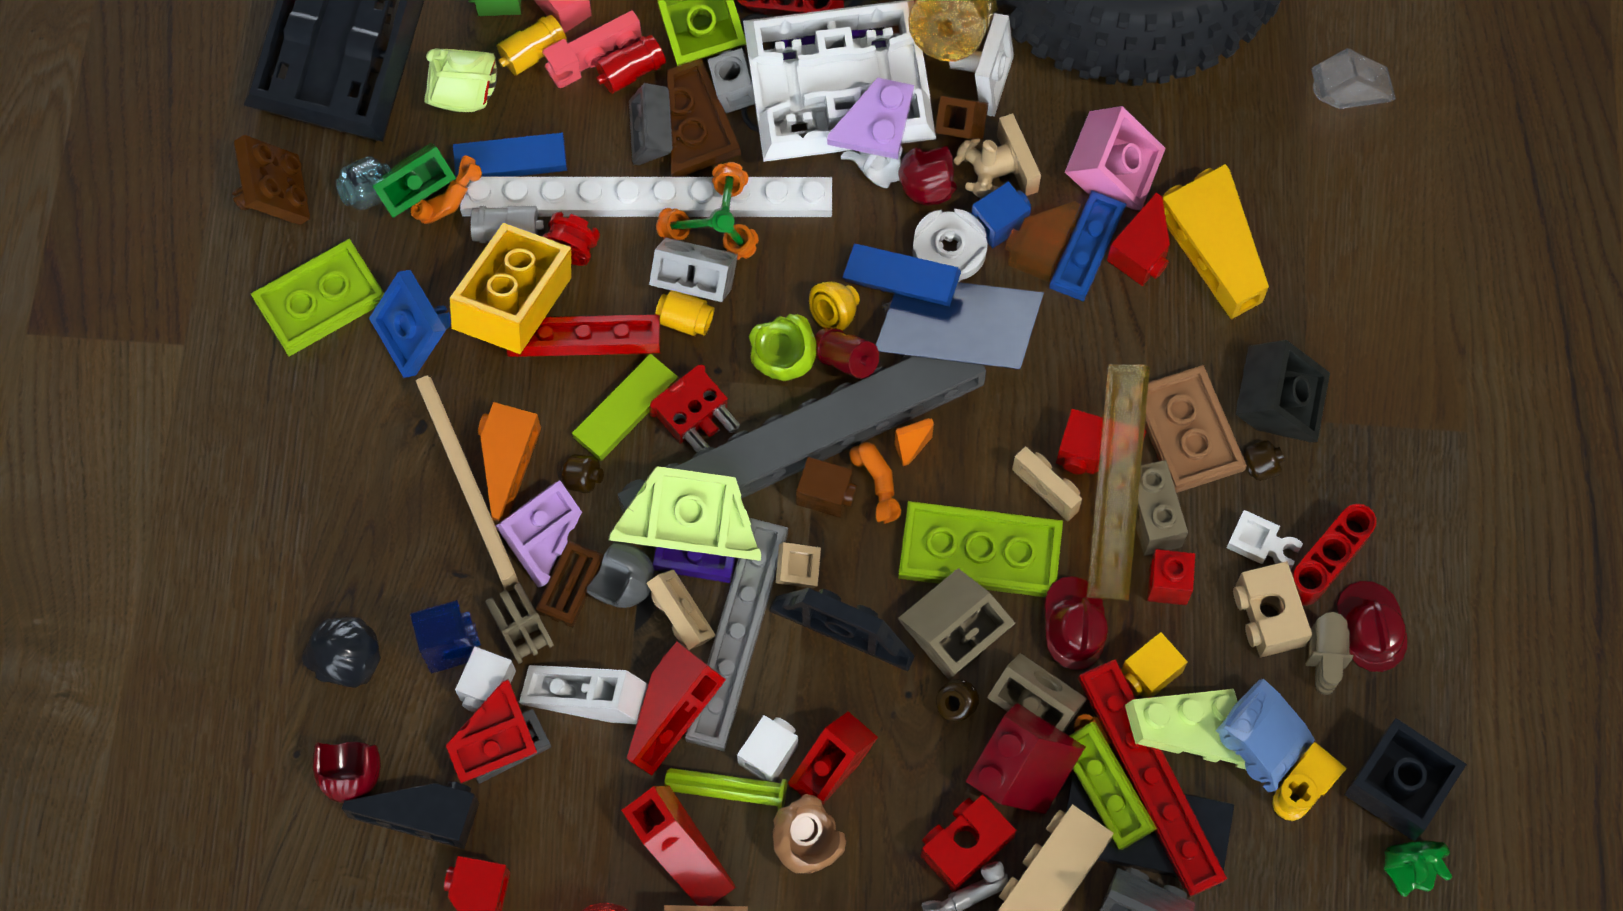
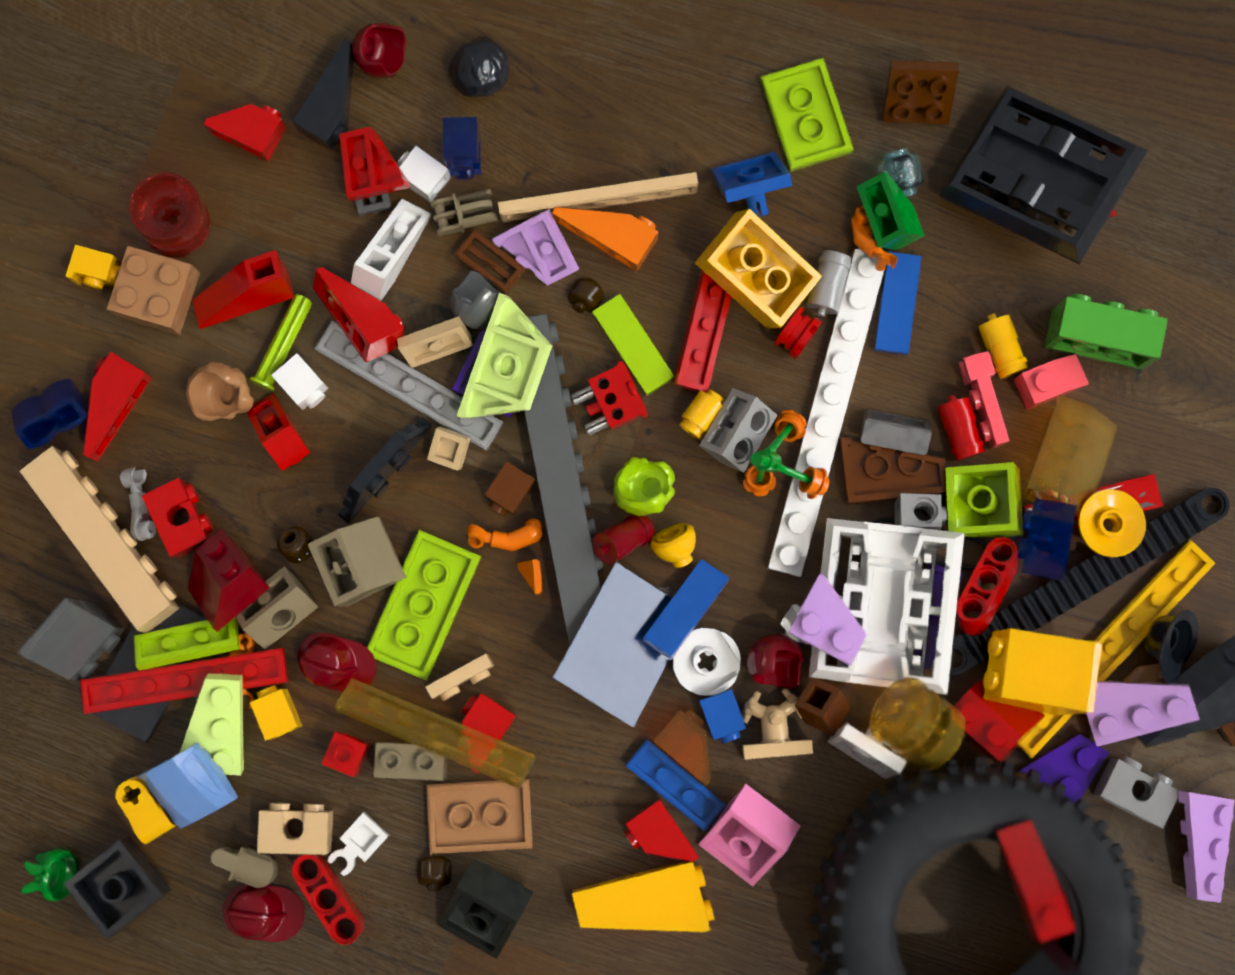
camera: 105 degrees right, 15 degrees up
(460, 79) = (980, 274): yellowish green piece -> none

